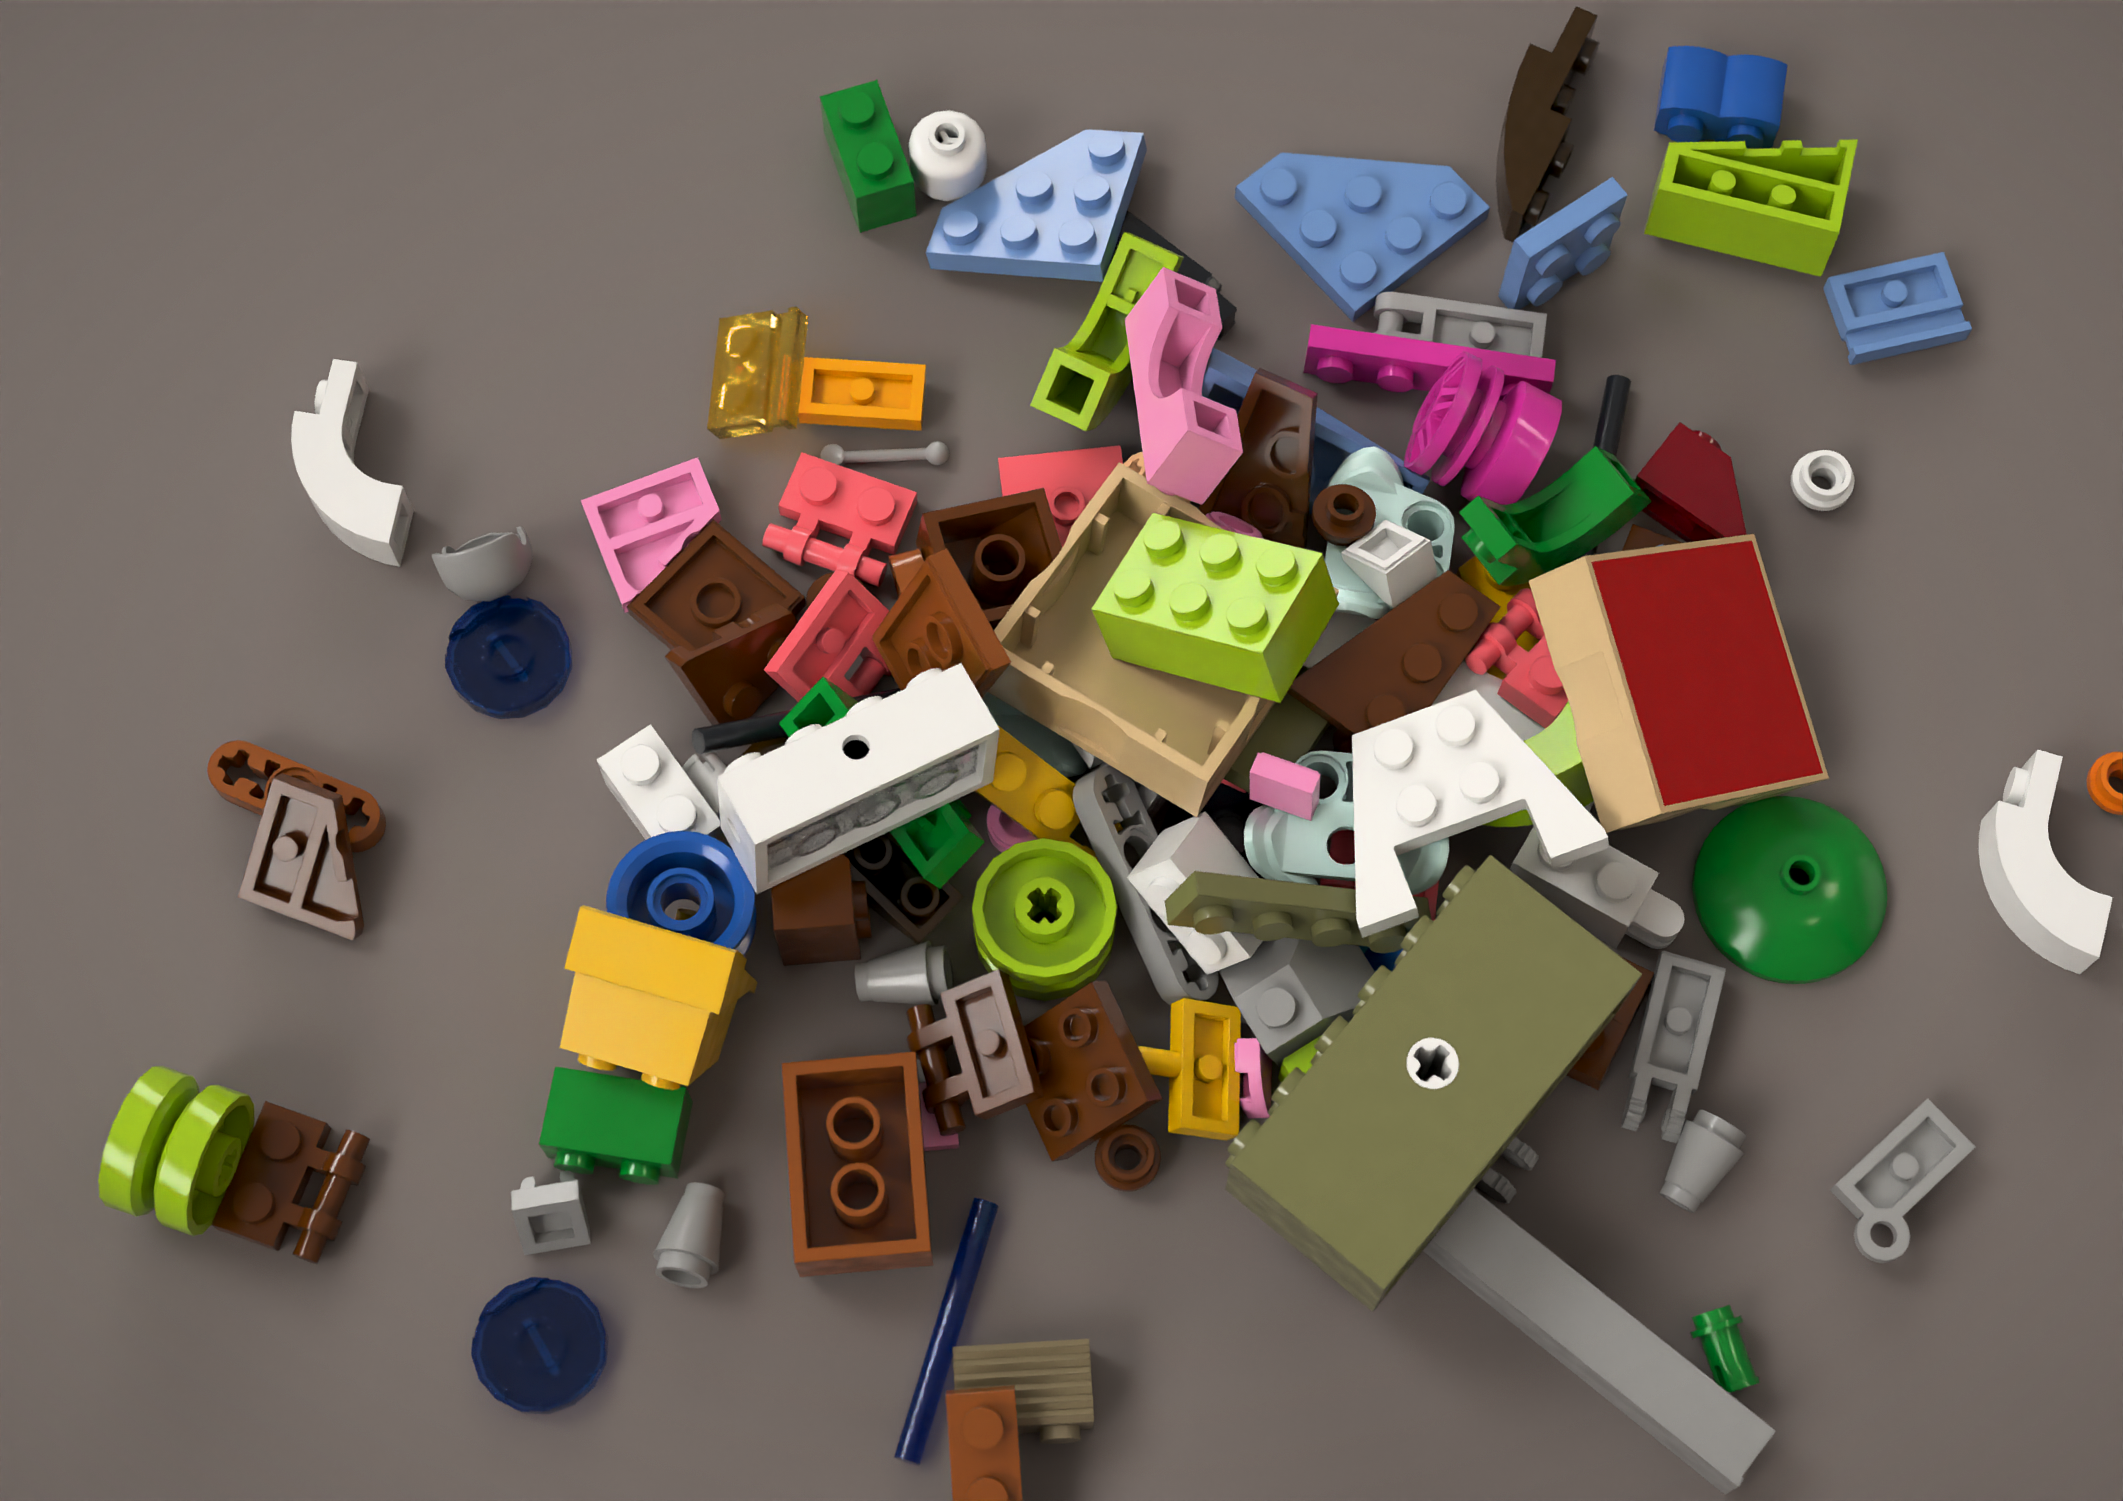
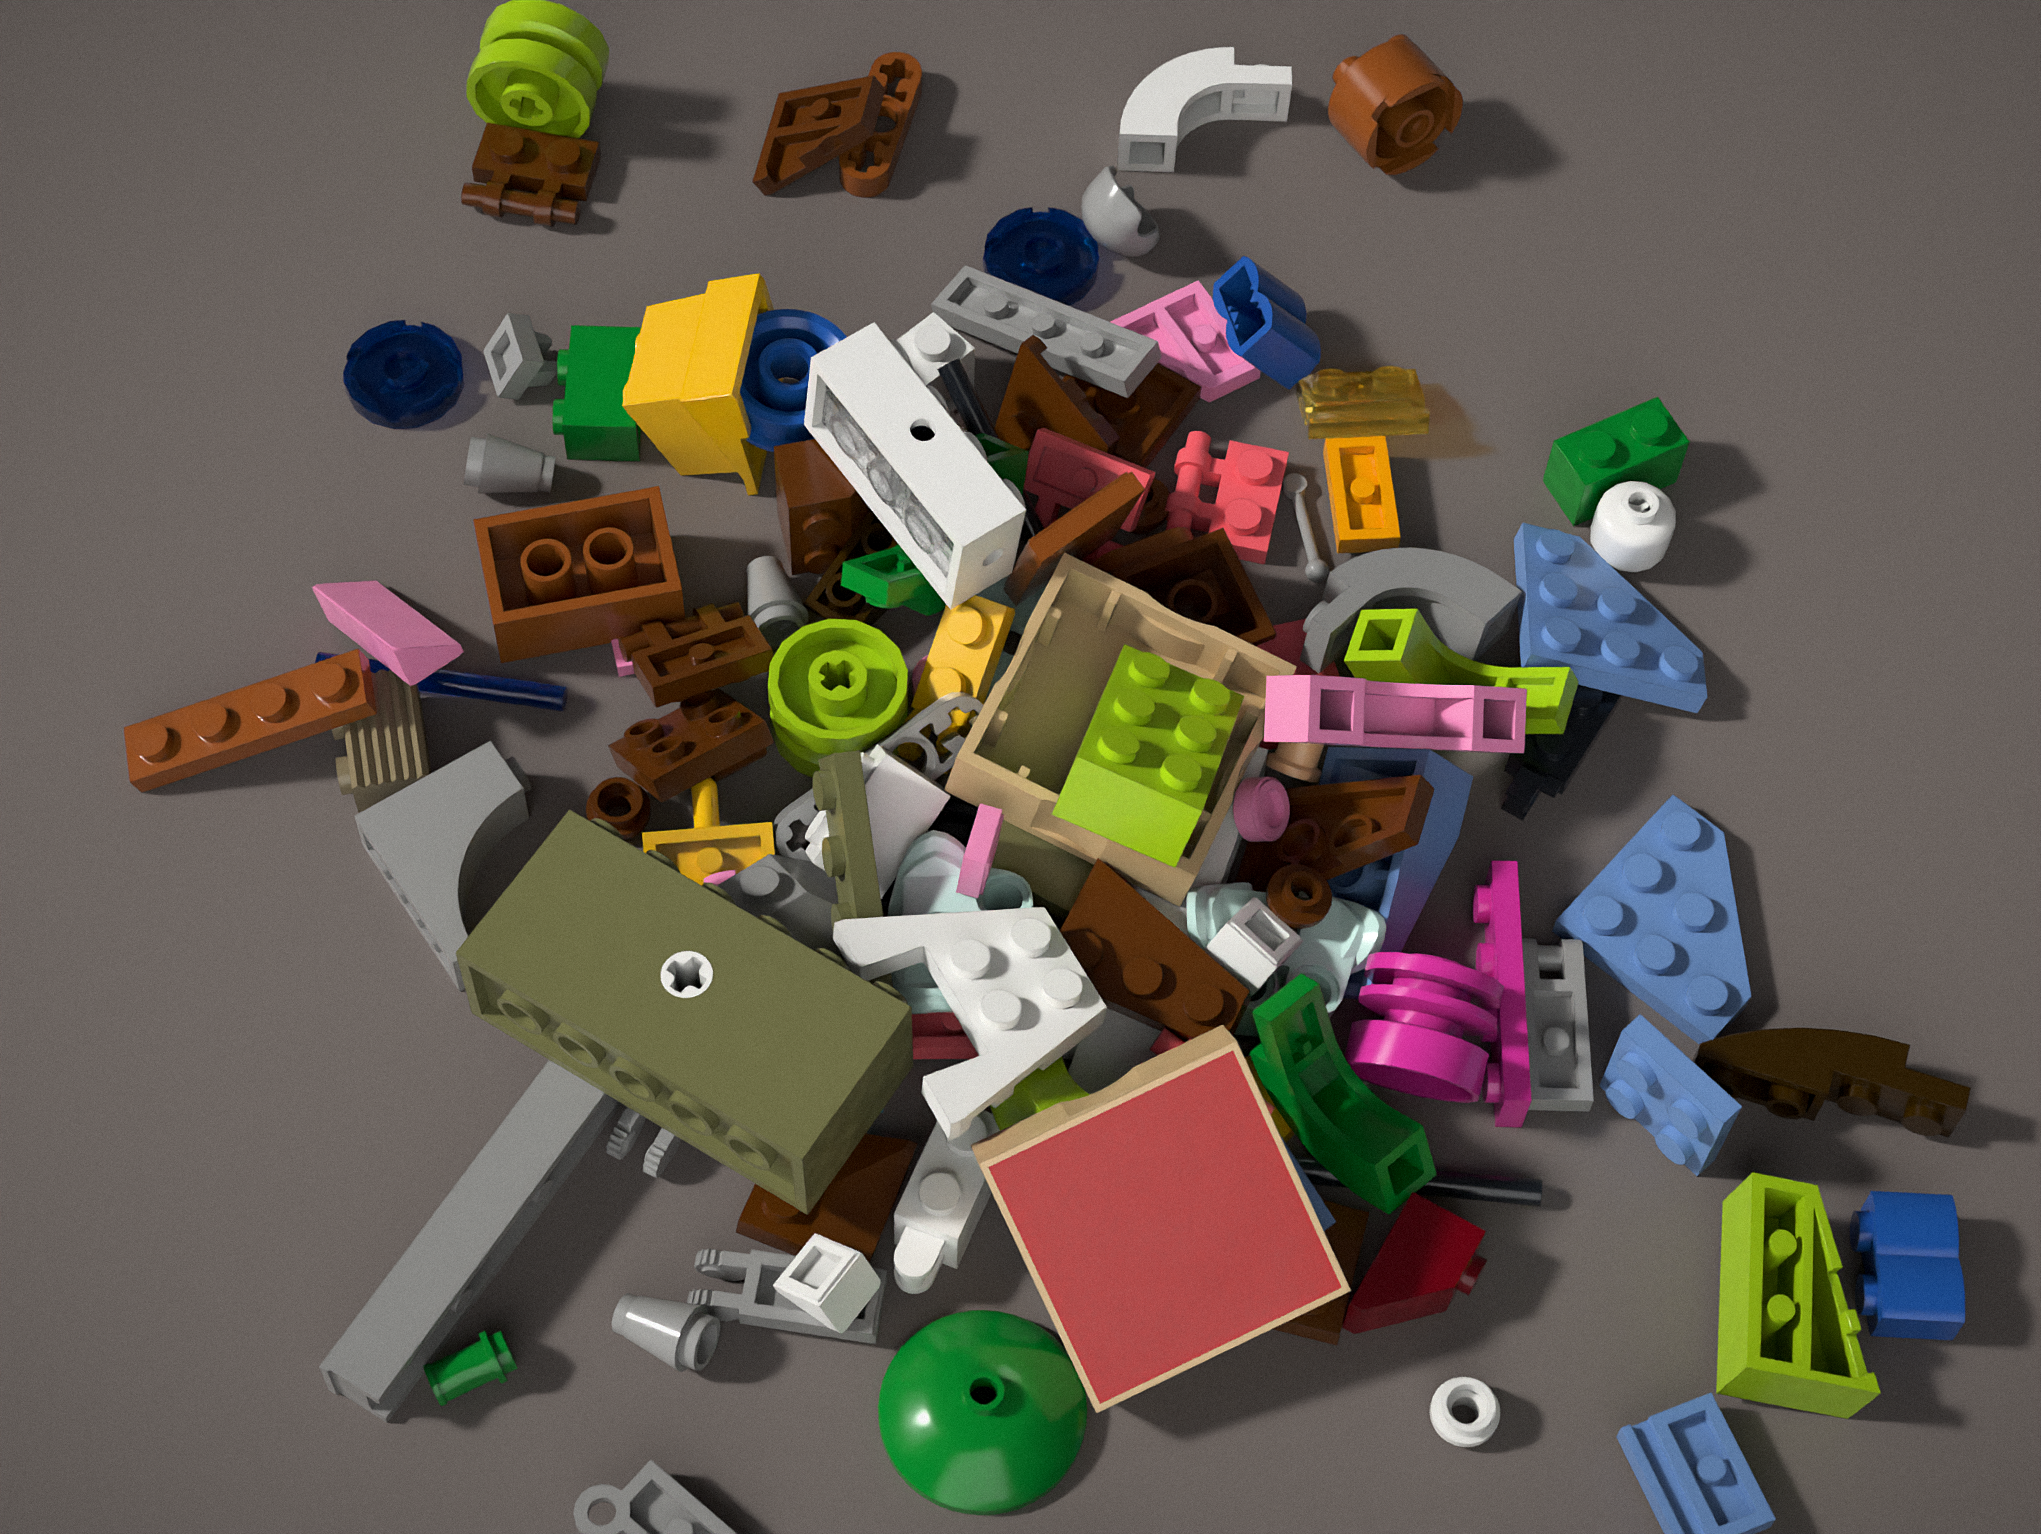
camera: 80 degrees right, 10 degrees down
(400, 271) = (1393, 105): none -> dark orange brick
(625, 657) = (1074, 339): none -> light grey plate
(657, 439) = (1266, 323): none -> blue brick
(899, 1370) = (387, 628): none -> bright pink slope
(995, 345) = (1456, 597): none -> light grey arch
(1154, 1346) = (438, 835): none -> light grey arch
(1676, 1003) = (829, 1282): none -> white slope

